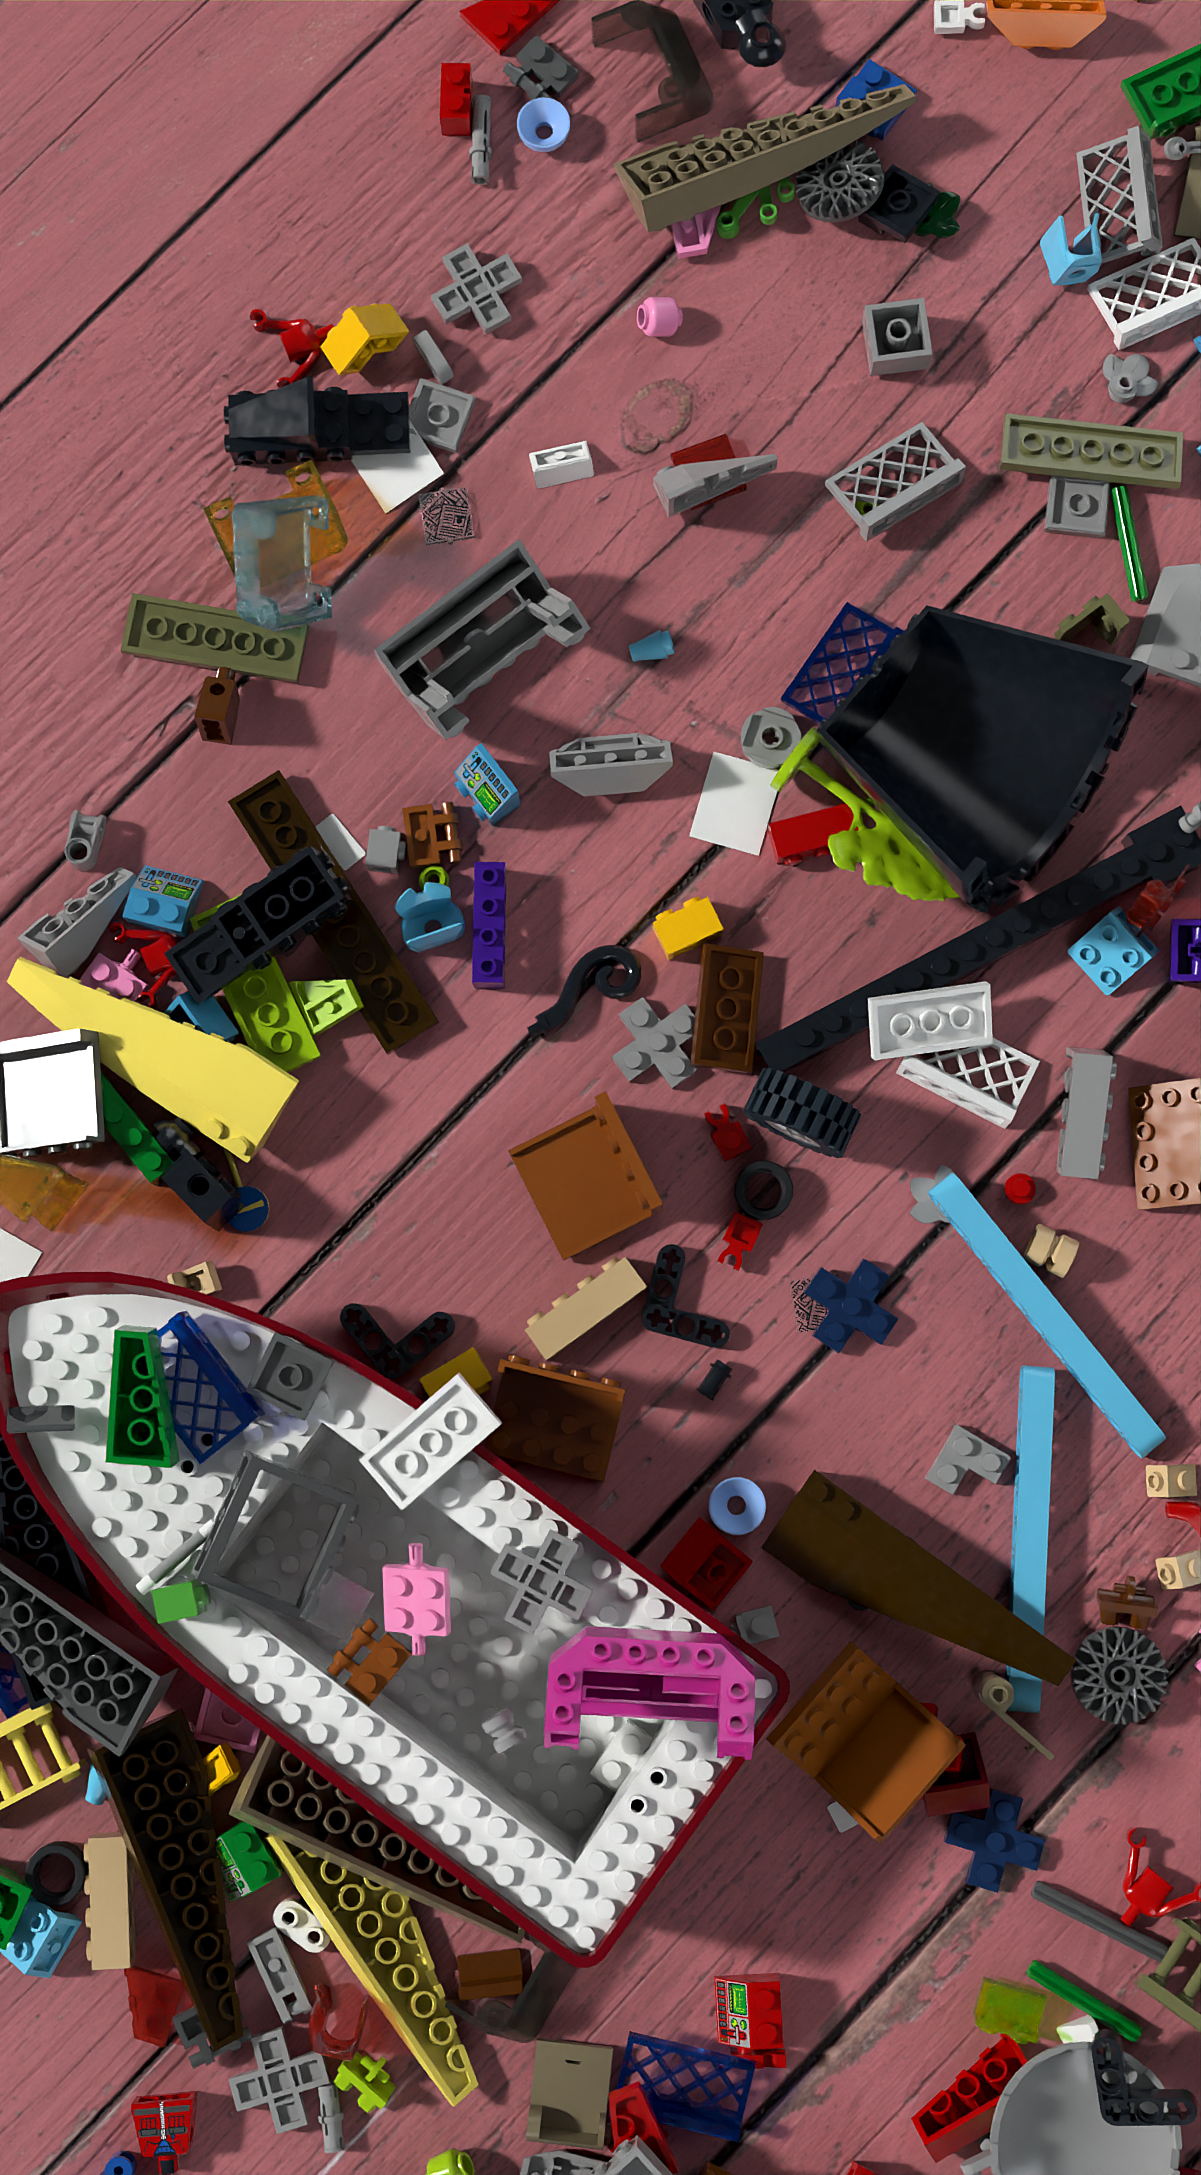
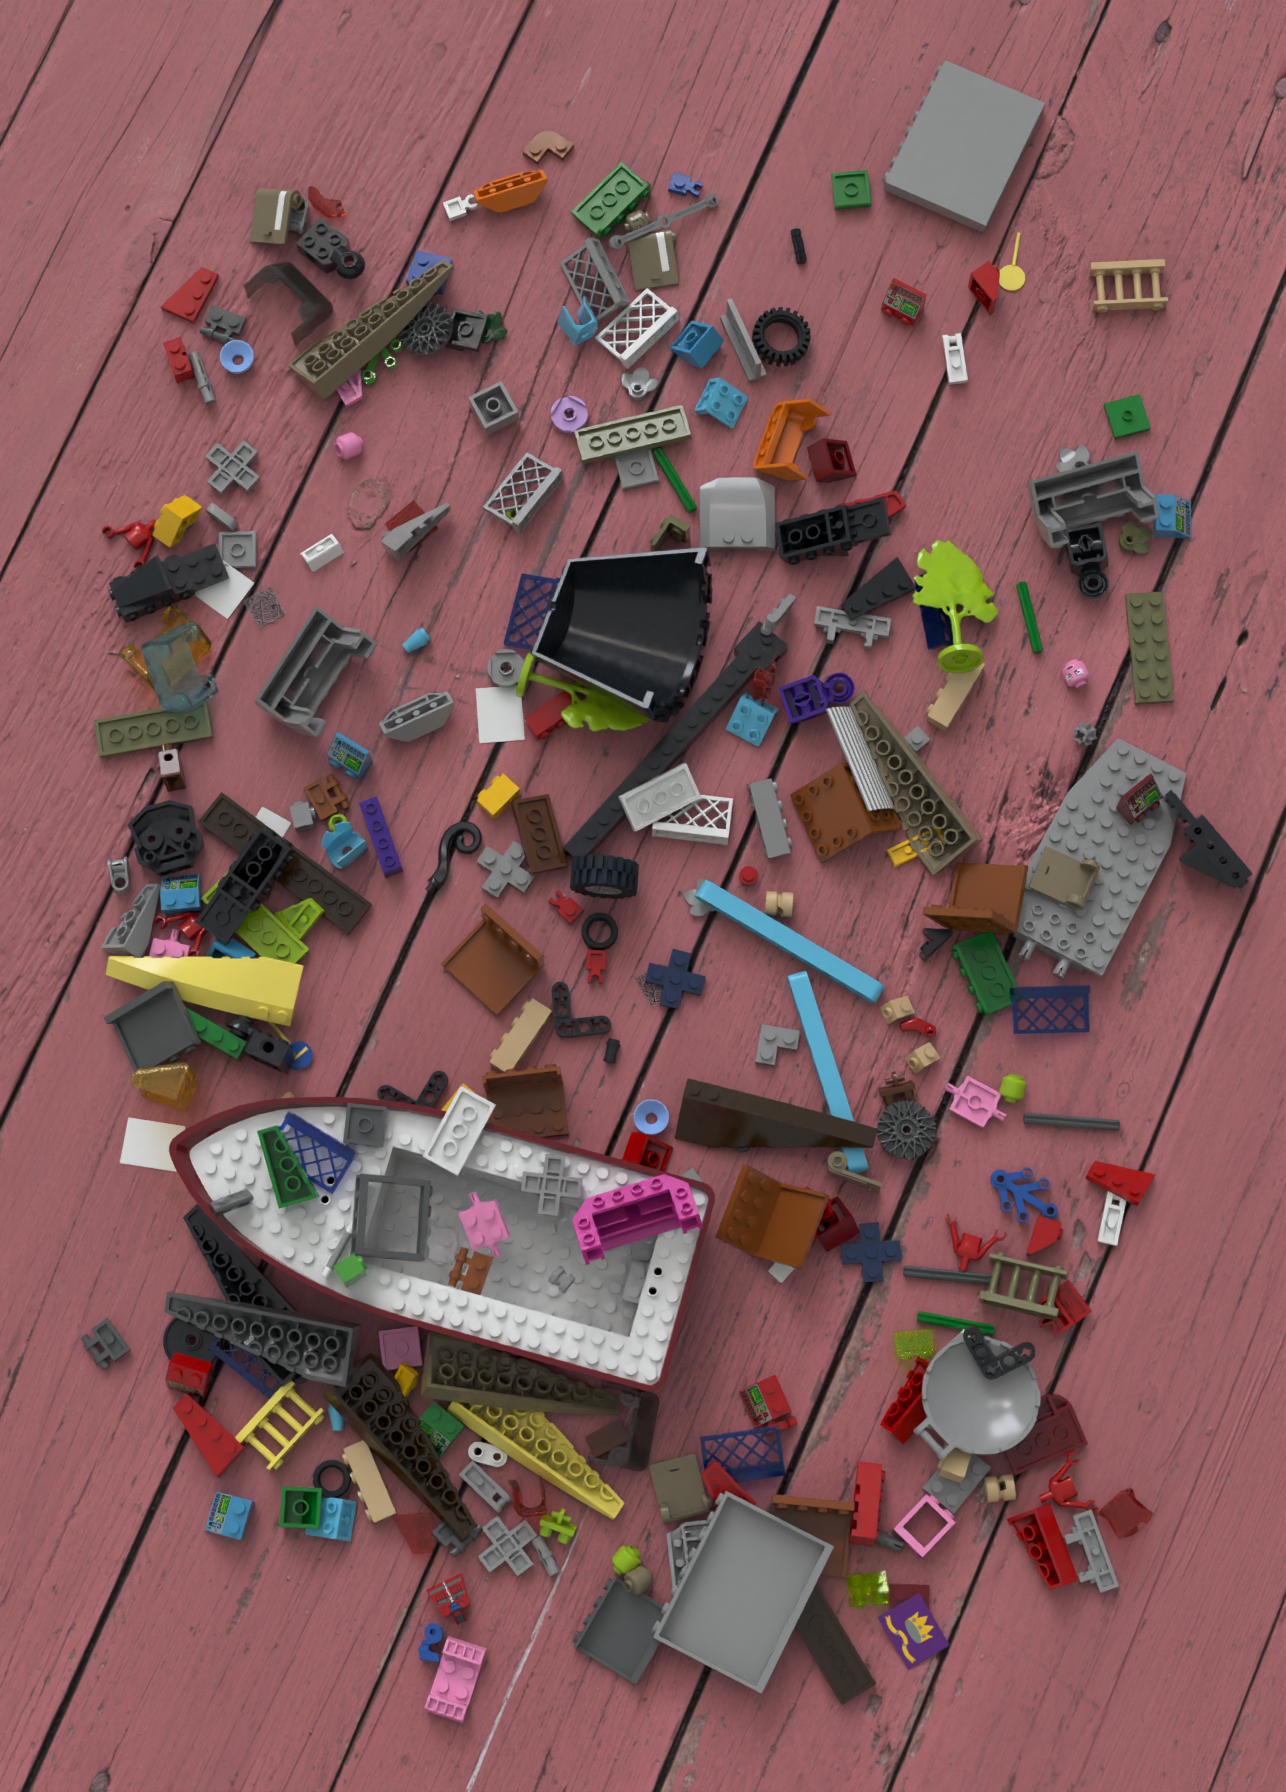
camera: 25 degrees left, 5 degrees down
(175, 785) = (162, 822): none -> black brick
(1006, 371) = (569, 404): none -> lavender plate

